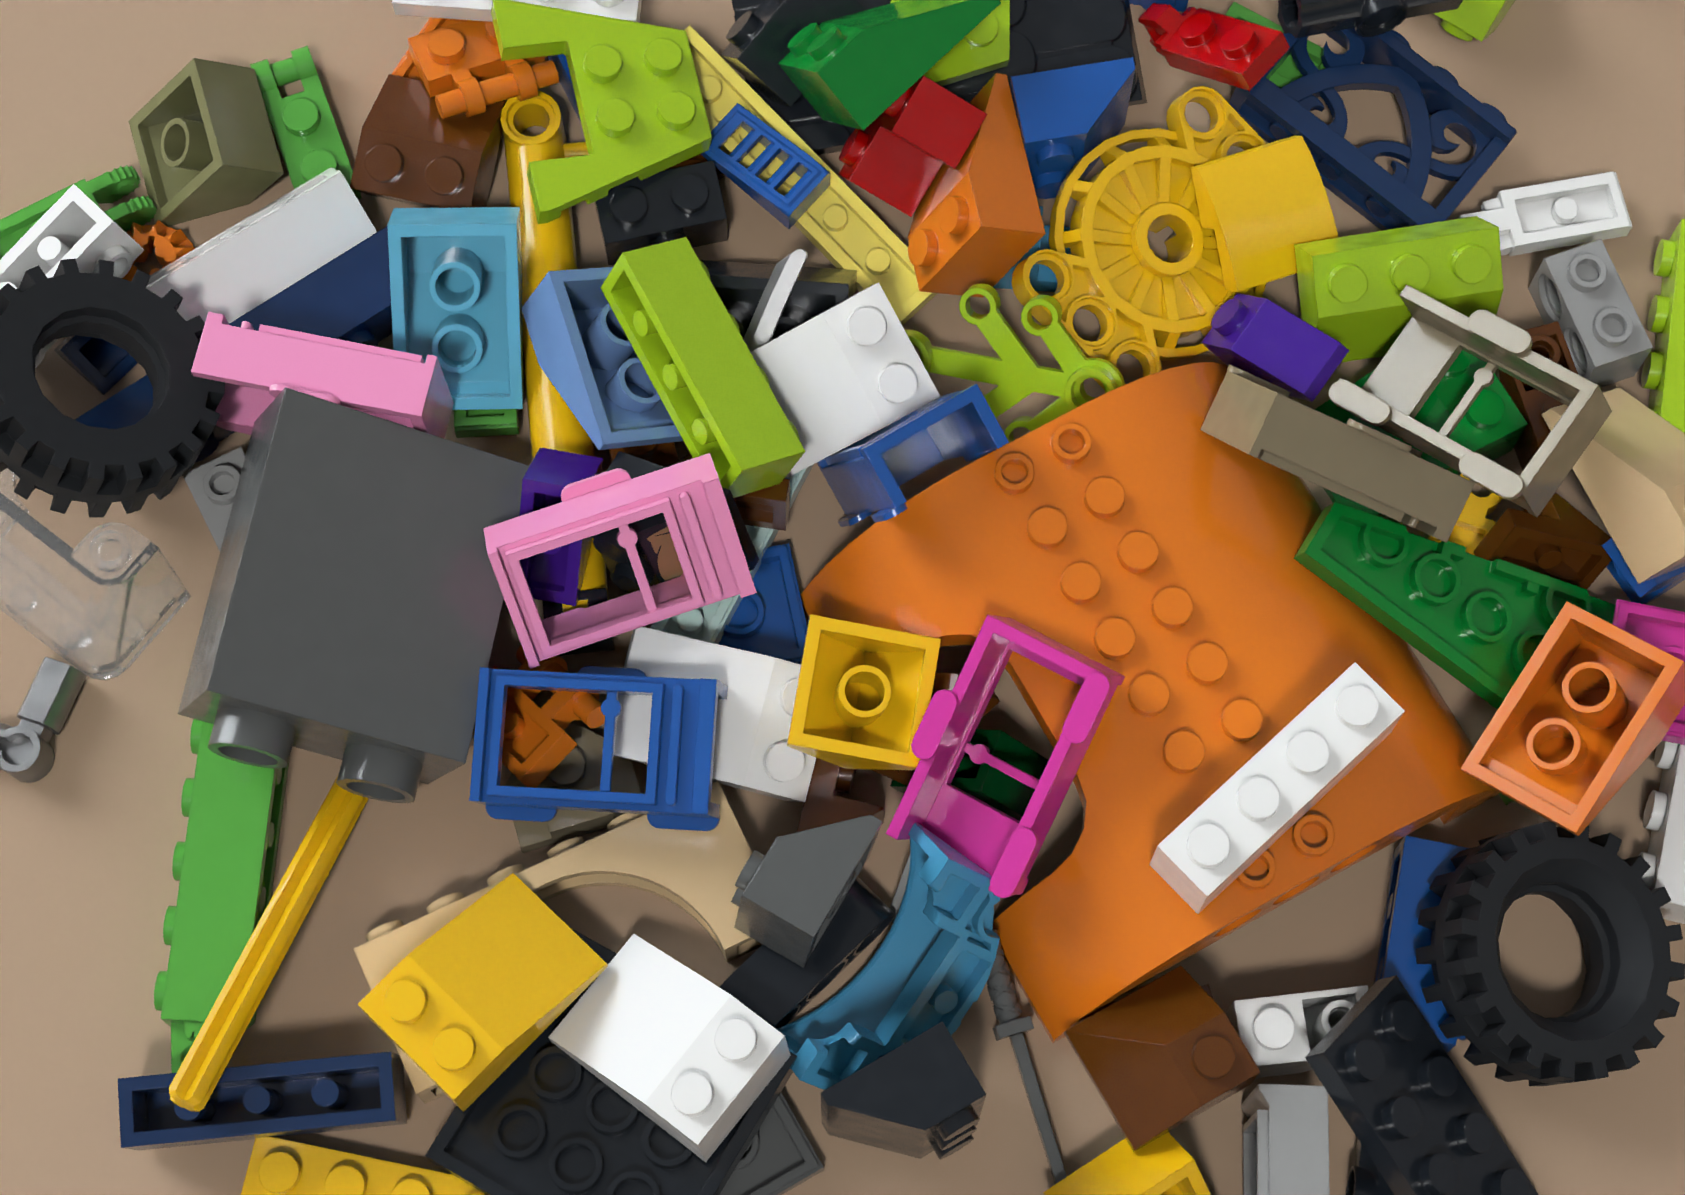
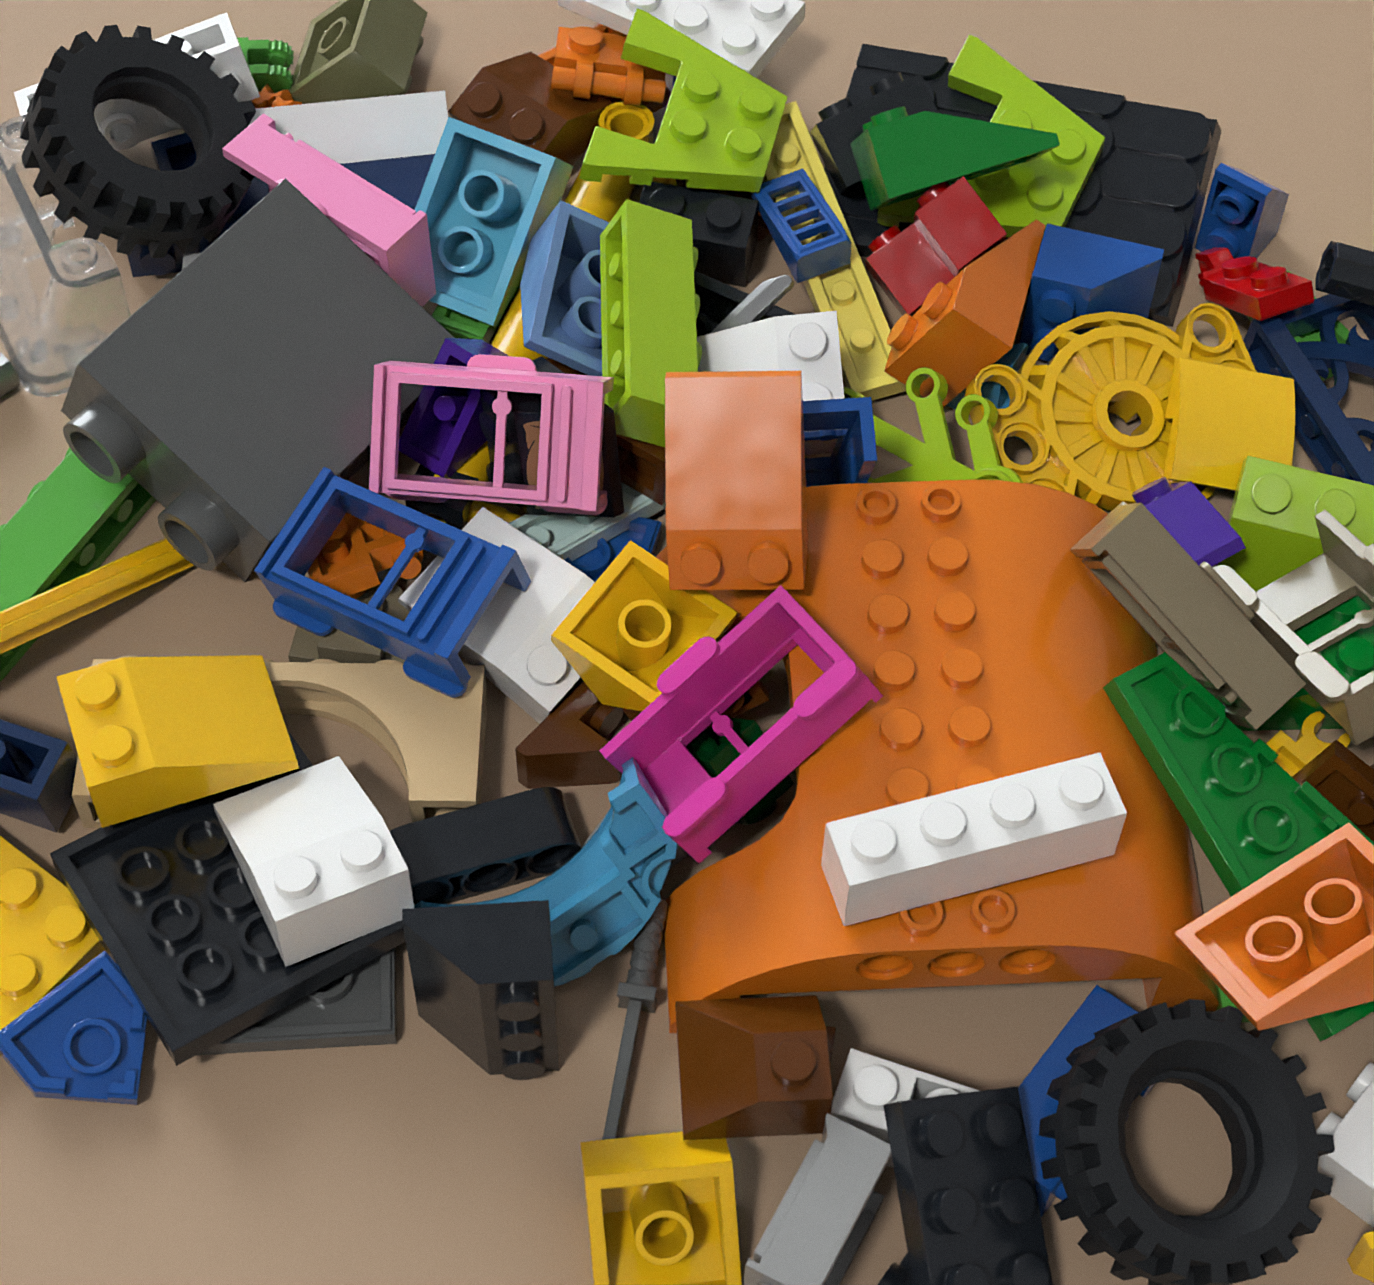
camera: 25 degrees right, 15 degrees down
(302, 120) = (447, 66): bright green plate -> none
(801, 884) = (504, 757): dark grey slope -> none
(901, 532) = (735, 480): none -> orange slope

